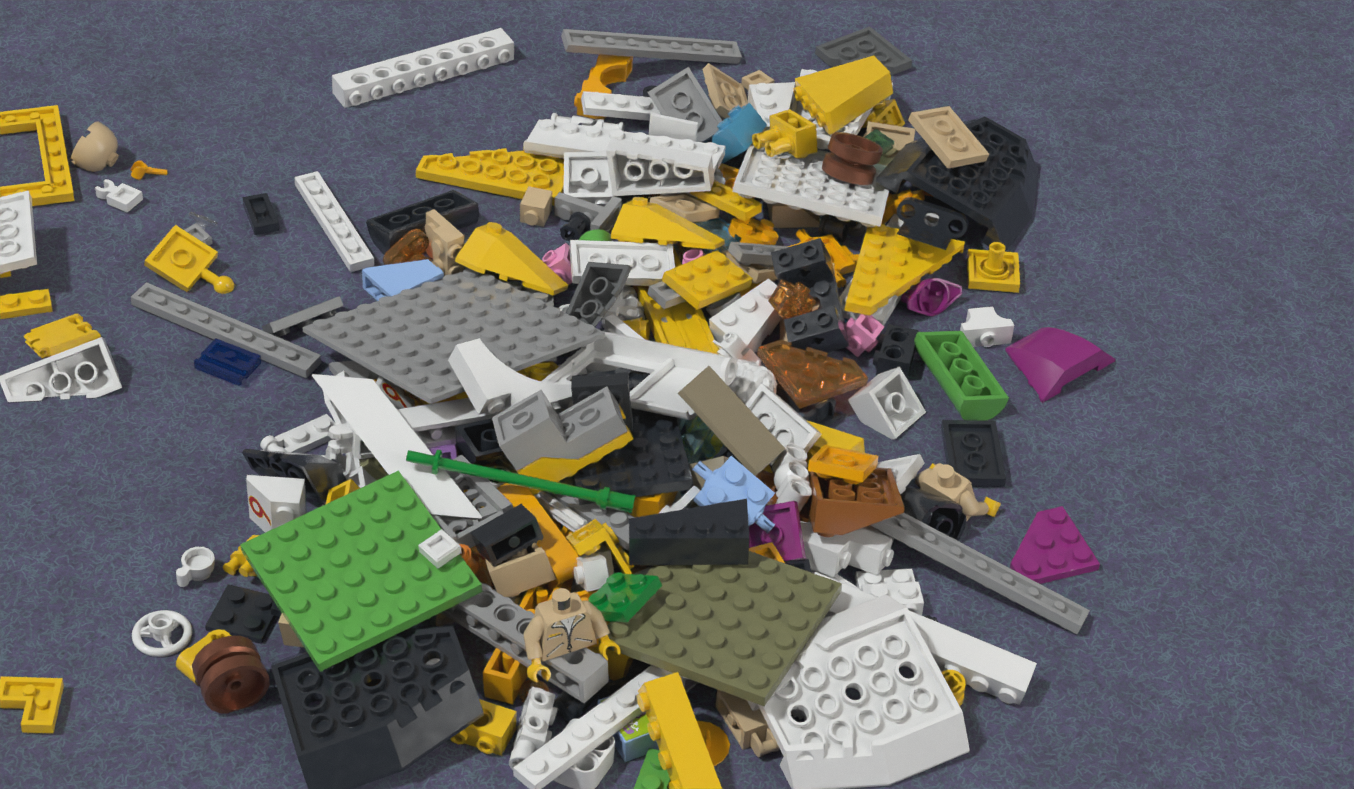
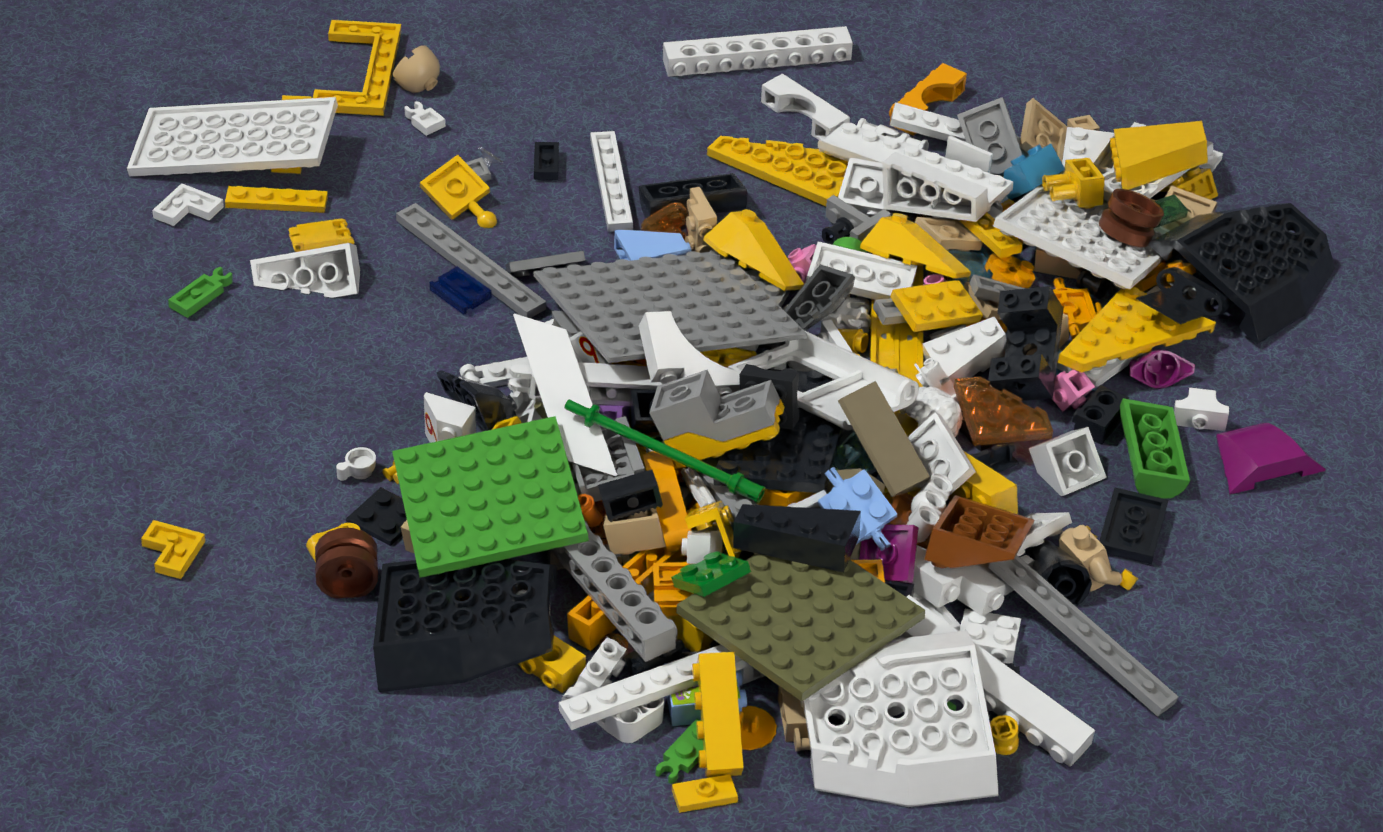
camera: 20 degrees right, 0 degrees up
(140, 168) = (453, 97): light orange hand -> none
(160, 627) = (306, 510): white piece -> none
(439, 548) = (561, 492): white tile -> none
(470, 104) = (786, 95): none -> white arch
(536, 206) = (808, 204): tan brick -> none
(564, 627) = (642, 586): tan torso -> none
(650, 46) = (986, 71): light grey plate -> none
(791, 299) = (1005, 340): clear orange brick -> none
(842, 463) = (981, 503): light orange plate -> none
(863, 45) = (1215, 111): dark grey plate -> none
(948, 137) = (1236, 215): tan plate -> none
(993, 269) = (1238, 355): yellow plate -> none
(1053, 549) = (1170, 633): magenta plate -> none

